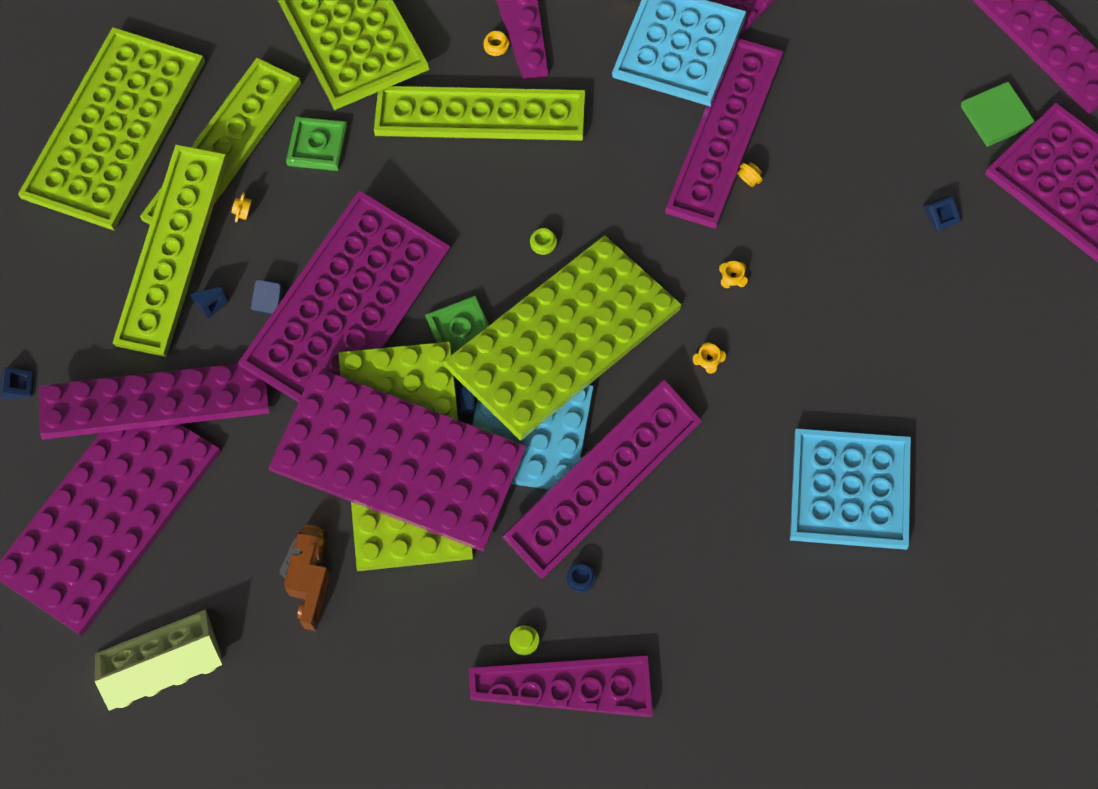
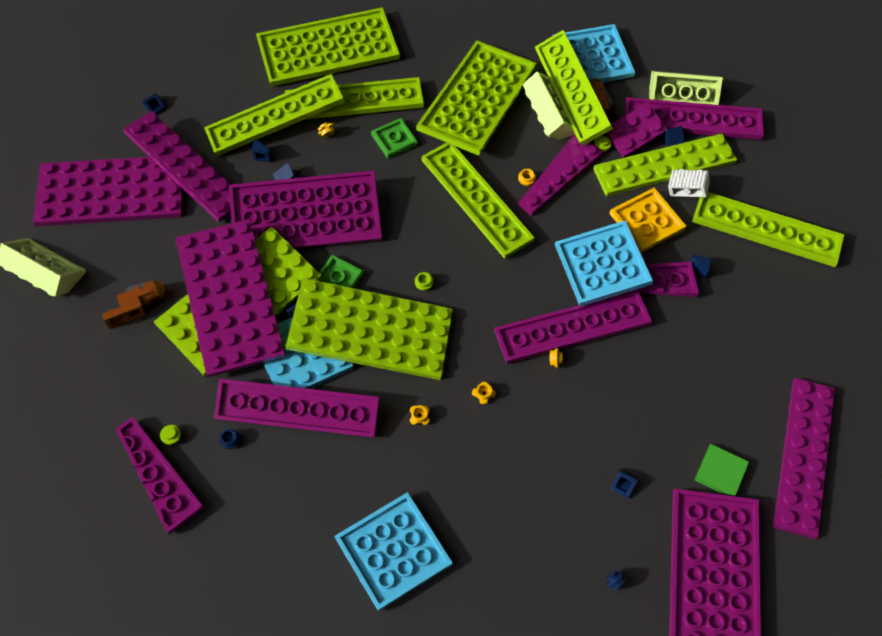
camera: 45 degrees right, 5 degrees down
(1041, 294) = (615, 579): none -> dark blue plate

